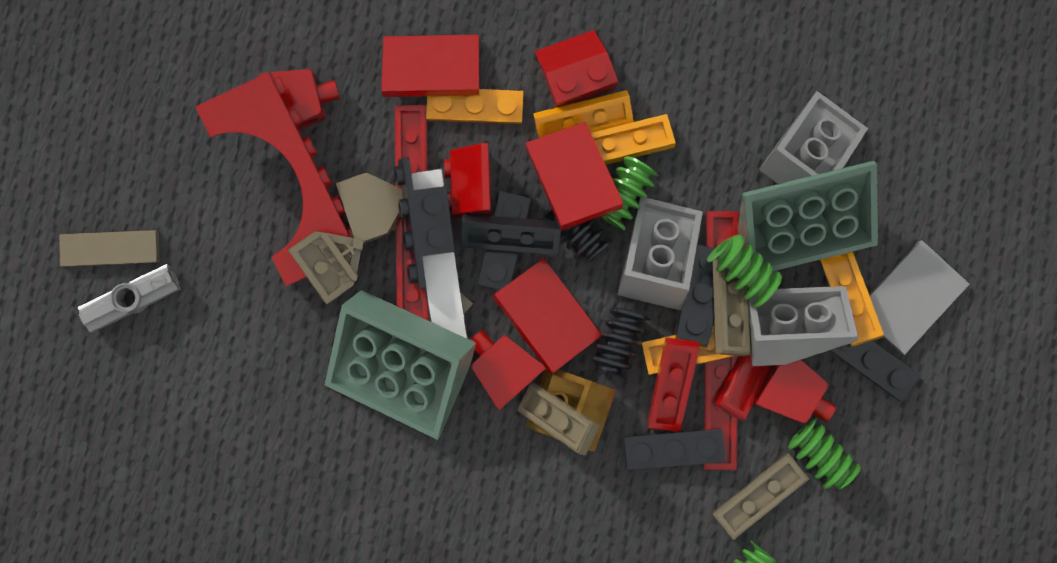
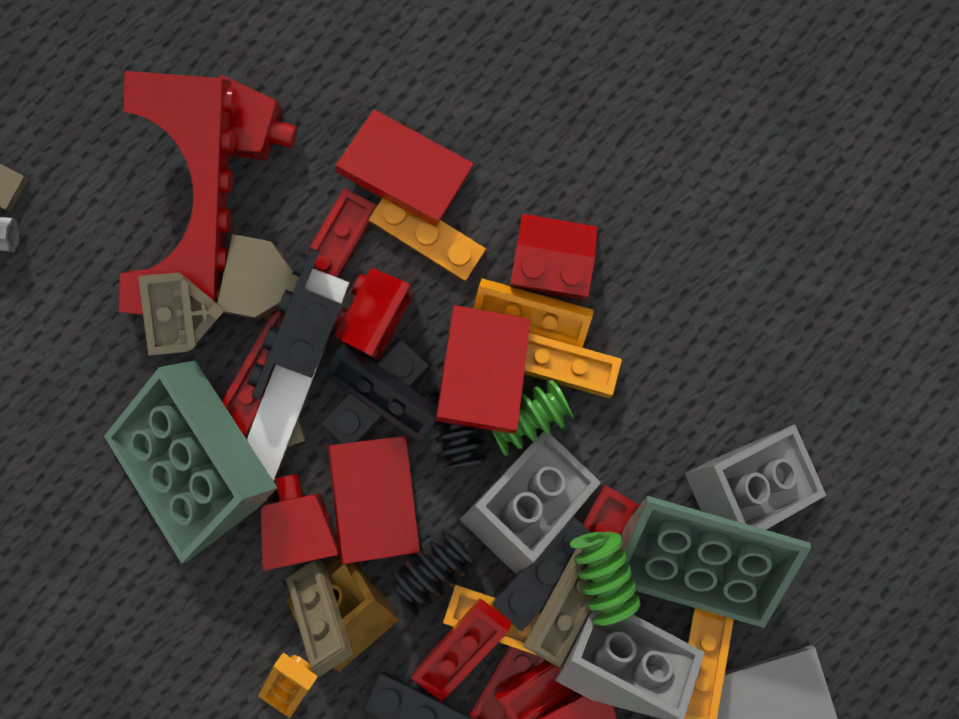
camera: 30 degrees right, 0 degrees up
(565, 478) = (287, 684): none -> light orange plate

